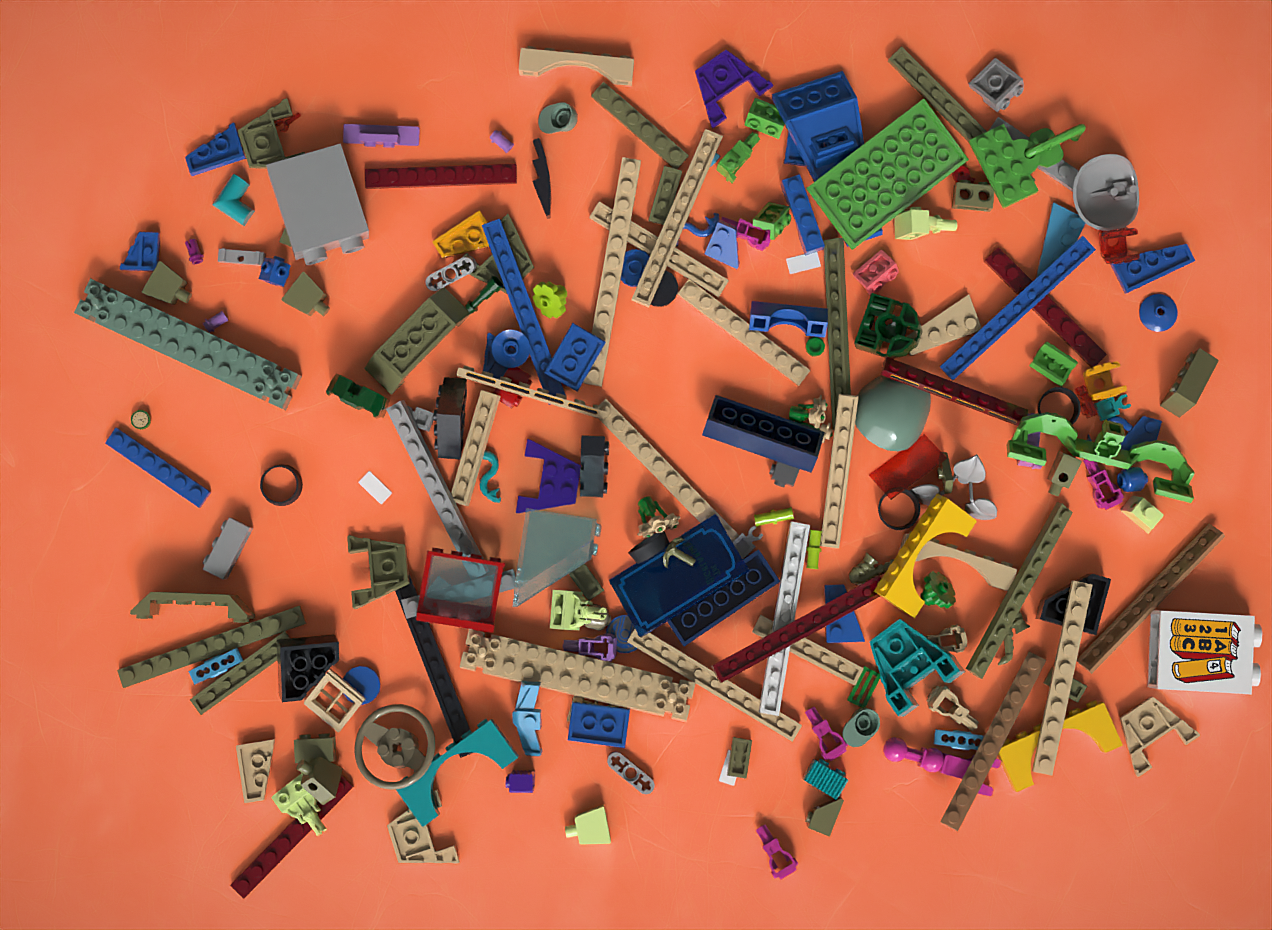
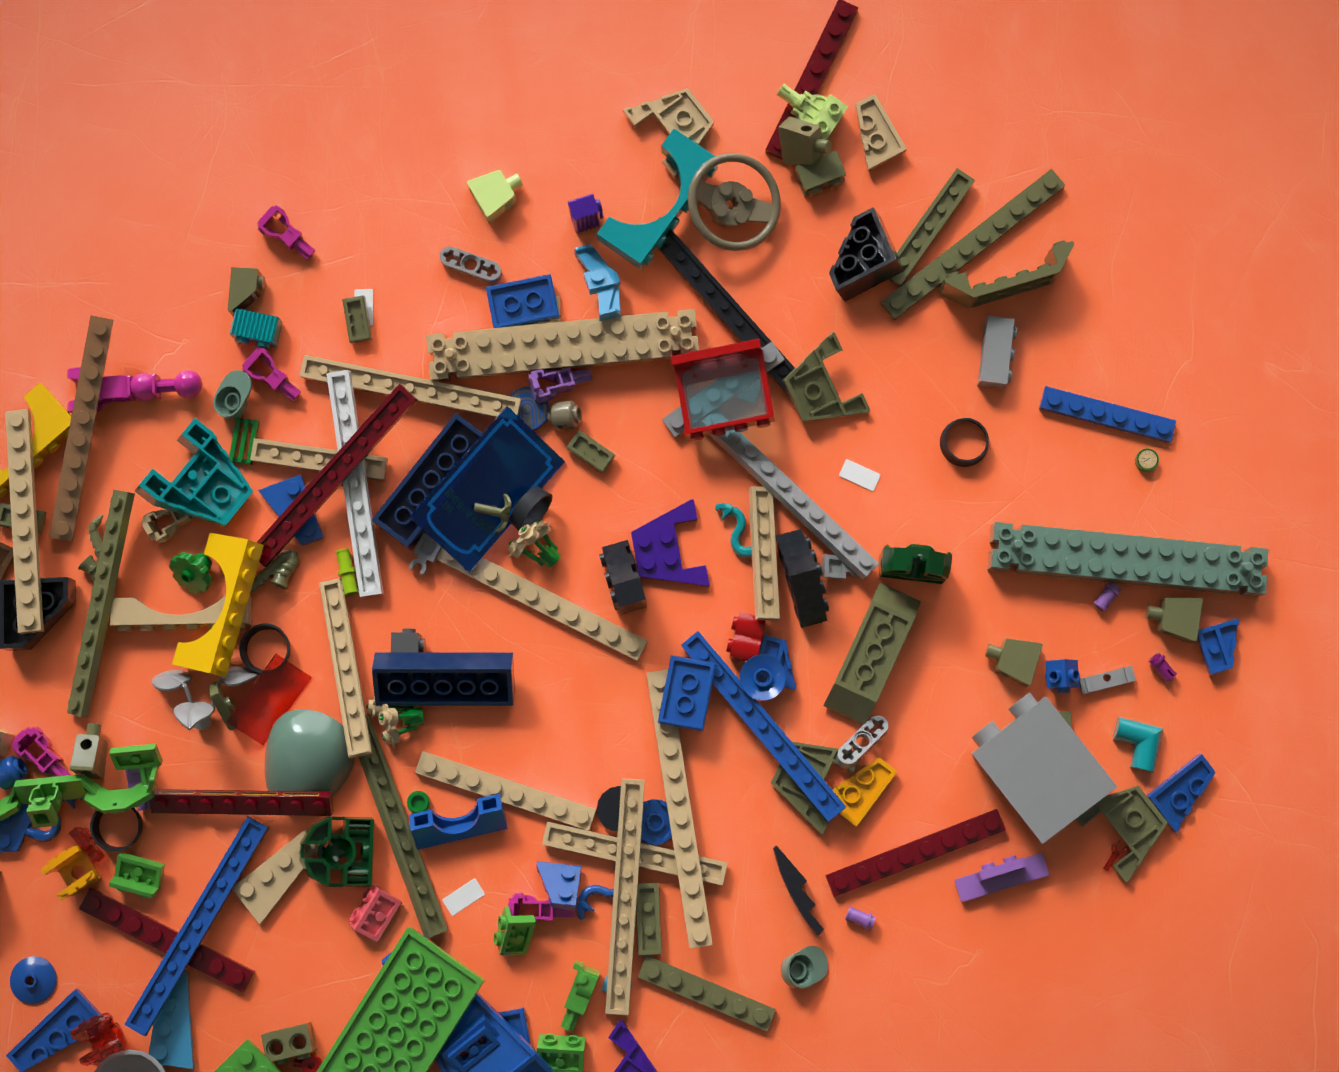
camera: 160 degrees right, 5 degrees down
(194, 673) = (960, 217): dark azure piece -> none
(323, 712) = (812, 246): tan piece -> none
(364, 681) = (796, 258): blue tile -> none
(493, 285) = (808, 743): dark green piece -> none
(537, 62) = (852, 1027): tan arch -> none
(540, 395) = (731, 634): tan plate -> none
(550, 299) = (738, 751): lime plant -> none
(551, 550) = (634, 467): clear light blue windscreen -> none
(571, 609) = (592, 410): yellowish green brick -> none
(773, 516) = (403, 592): lime pin -> none
(803, 214) = (481, 951): blue arch -> none
(917, 223) = (342, 985): yellowish green brick -> none
(954, 743) = (125, 412): dark azure piece -> none
(957, 712) = (133, 447): tan piece -> none
(1109, 407) = (55, 845): teal plate -> none

